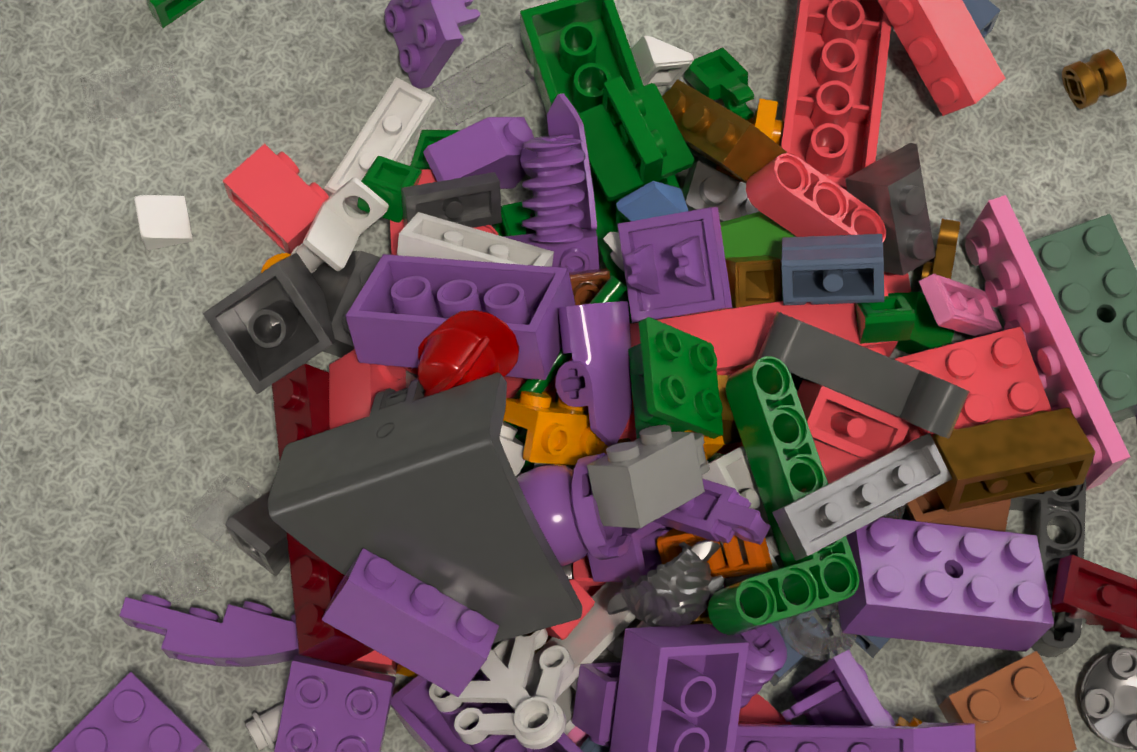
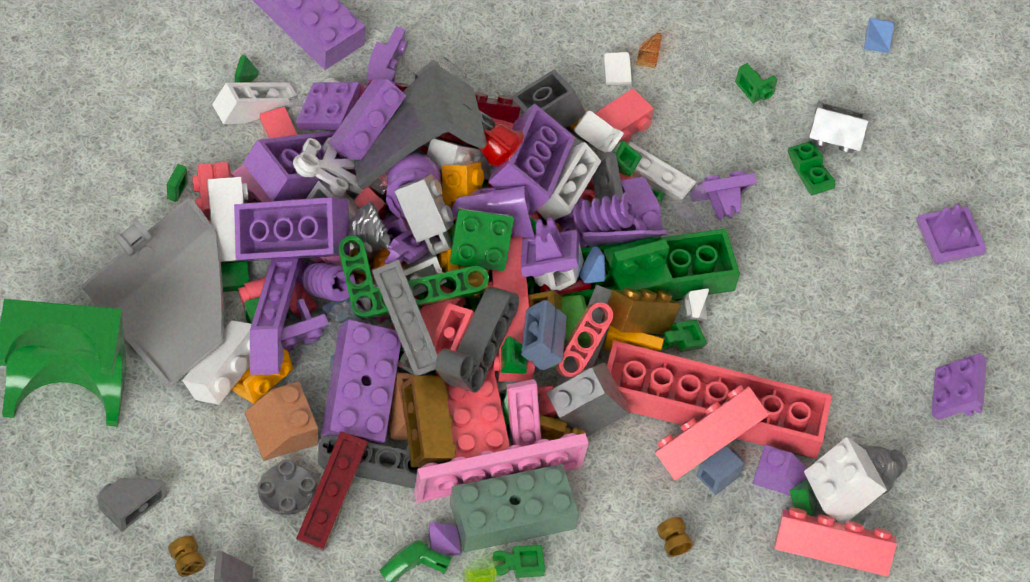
camera: 90 degrees right, 15 degrees down
(117, 165) = (649, 51): none -> clear orange slope

